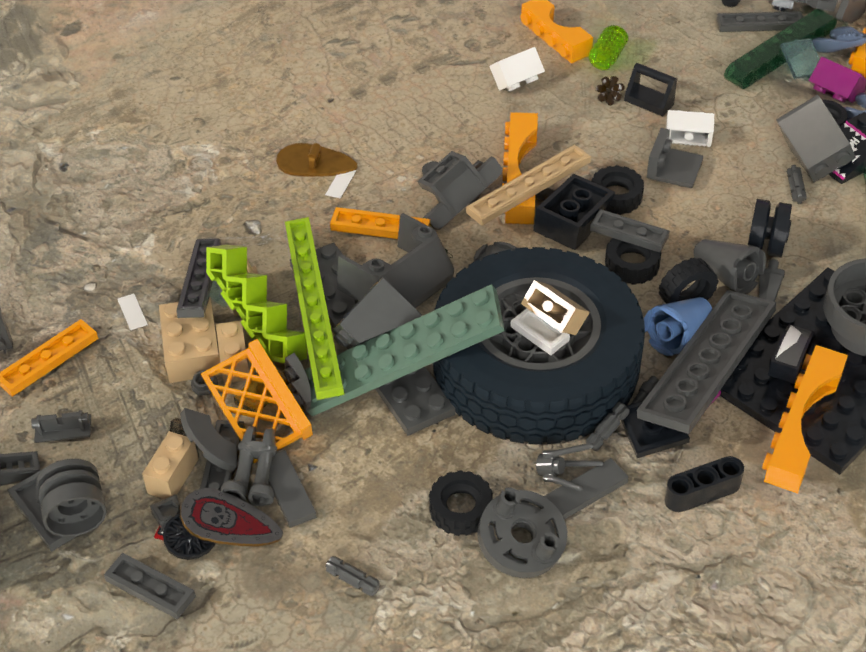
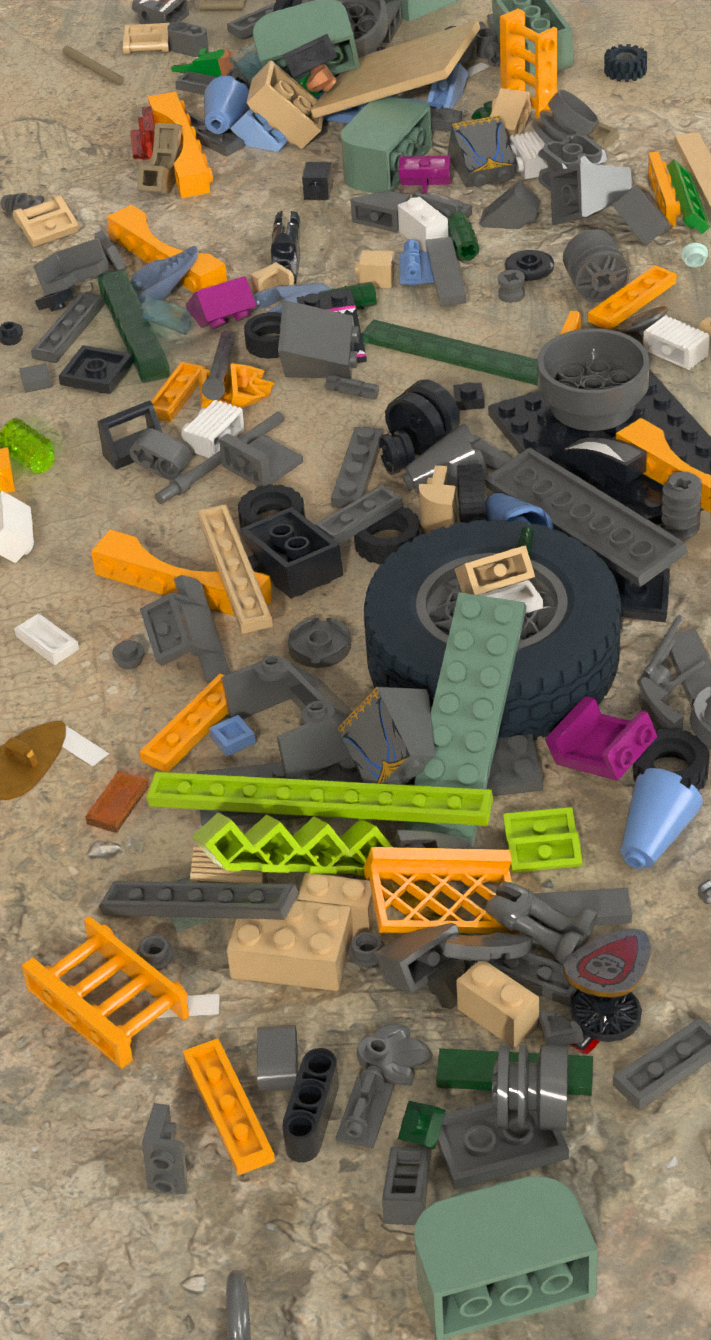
camera: 65 degrees left, 5 degrees down
(49, 455) = (421, 1124): none -> dark green plate
(55, 396) = (310, 1105): none -> black beam
(91, 367) = (277, 1057): none -> dark grey beam
(109, 251) = (92, 1020): none -> light orange fence
(116, 429) = (393, 1053): none -> dark grey plate
(120, 500) = (475, 1069): none -> dark green tile
(165, 279) = (156, 951): none -> dark grey plate
(192, 398) = (414, 956): none -> dark grey slope
(284, 213) = (117, 801): none -> clear orange tile
(347, 449) = (542, 840): none -> lime slope
(376, 247) = (232, 735): none -> medium blue plate
(386, 505) = (657, 816): none -> medium blue cone
(430, 130) = (46, 639): none -> white tile
(456, 446) = (599, 741): none -> magenta panel
(517, 474) = (656, 702): none -> dark grey slope
(608, 318) = (526, 537): none -> dark green piece
(608, 426) = (629, 627): dark grey axle -> none
(609, 90) = (99, 469): dark brown plant -> none
(623, 134) = (182, 482): none -> dark grey bar
(641, 111) = (160, 454): none -> dark grey beam
(657, 264) = (437, 501): none -> tan brick
(692, 27) = (35, 377): none -> dark grey tile
(705, 218) = (356, 466): none -> dark grey plate
(717, 49) = (96, 369): none -> black plate
(720, 105) = (213, 387): none -> dark grey axle
(725, 228) = (396, 451): none -> black wheel
(726, 97) = (176, 390): none -> light orange tile
(744, 121) = (242, 386): none -> light orange plate
(761, 419) = (681, 505): none -> dark grey piece
(836, 253) = (469, 396): none -> black plate

